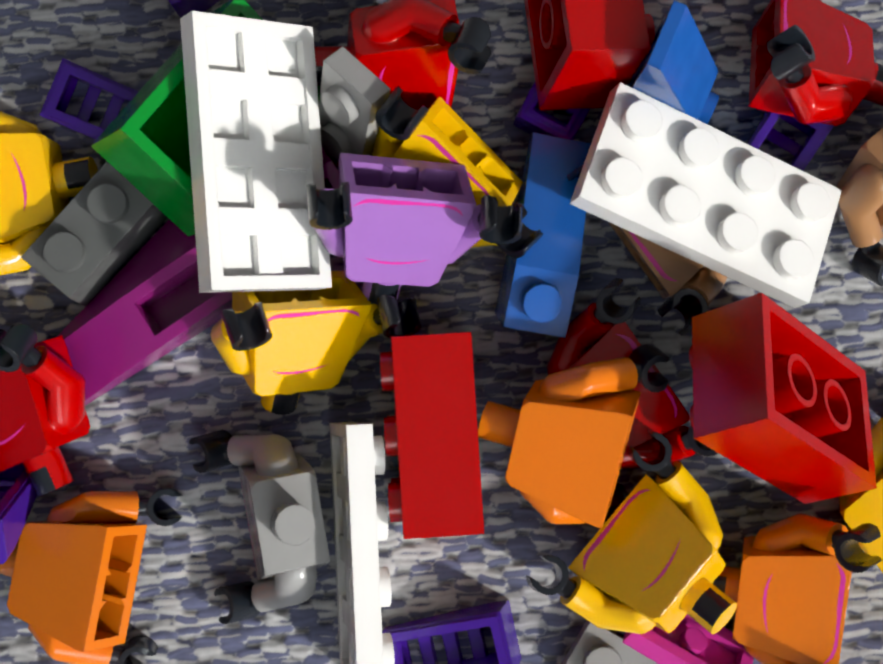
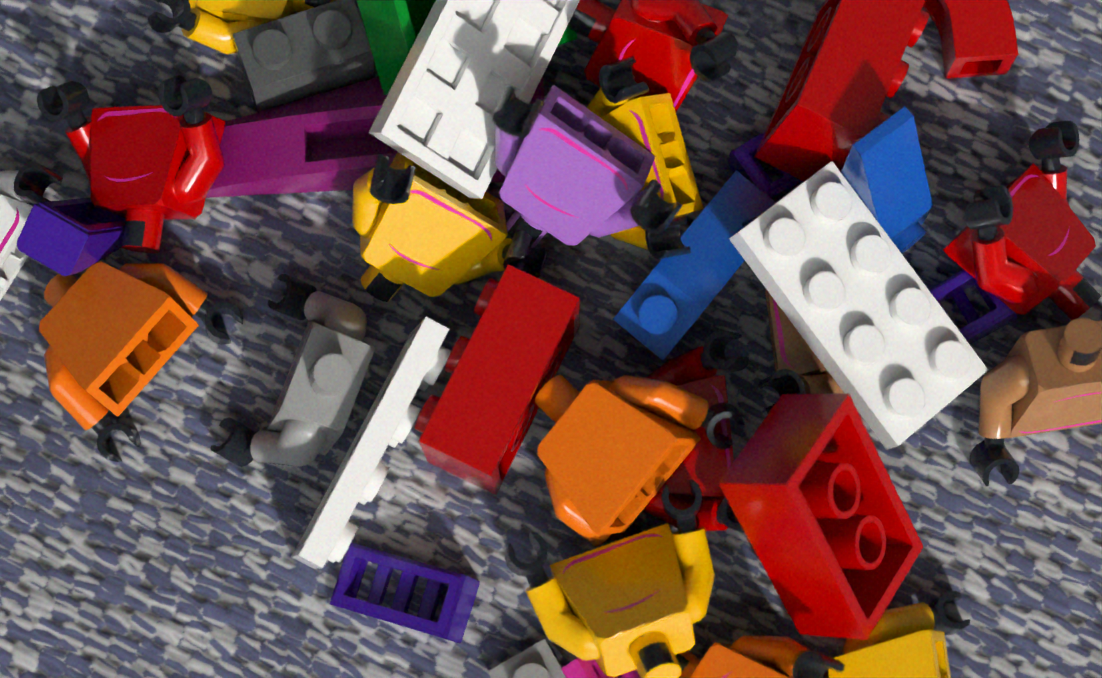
camera: 30 degrees right, 10 degrees down
(349, 105) = (583, 51): light grey plate -> none

